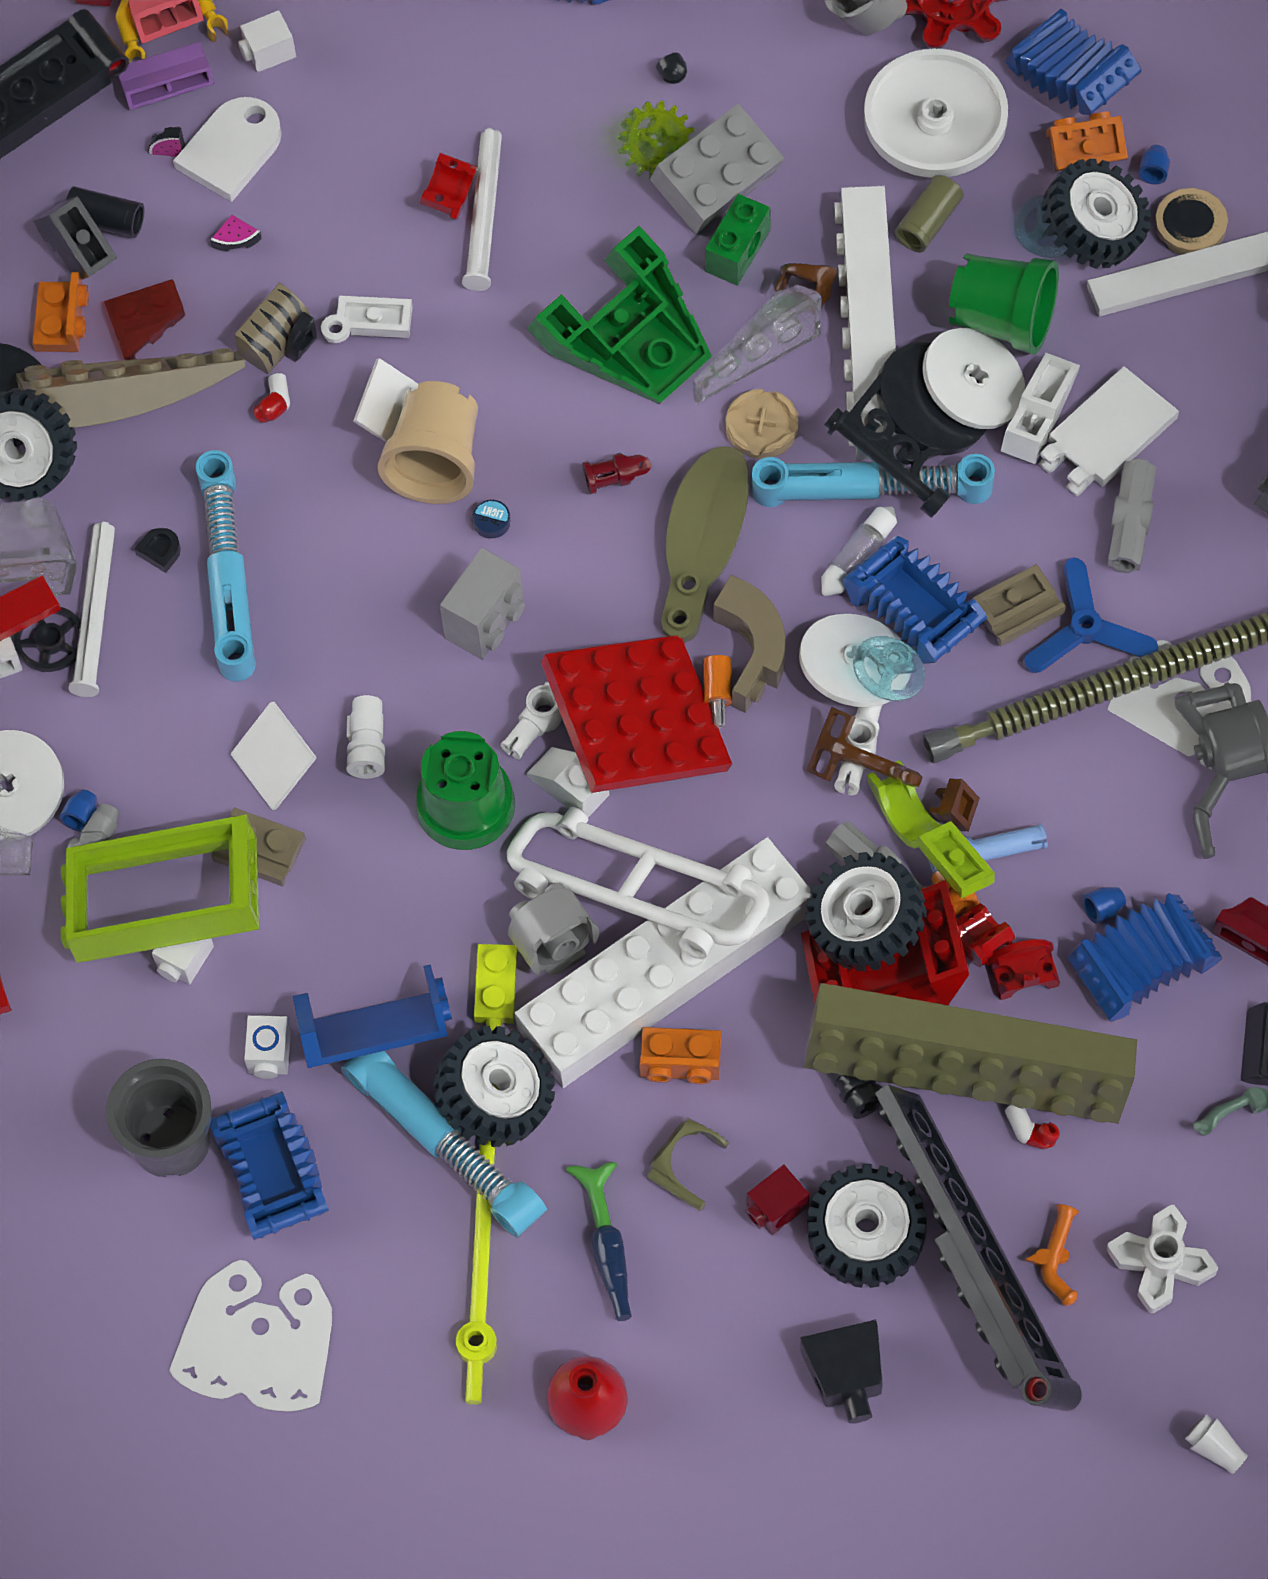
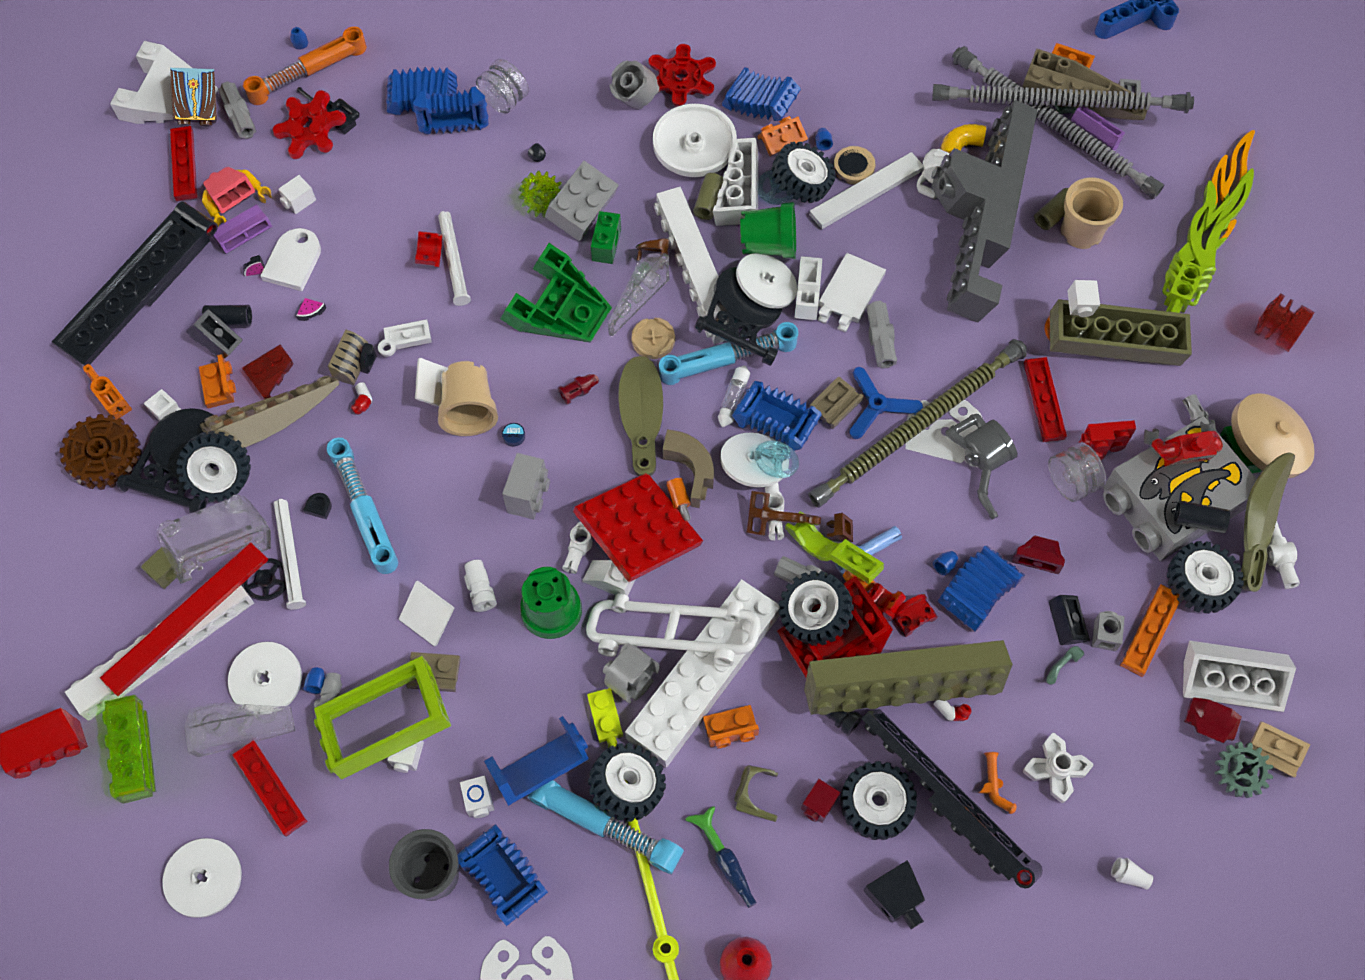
camera: 20 degrees left, 0 degrees up
(986, 204) = (739, 184): none -> white wedge

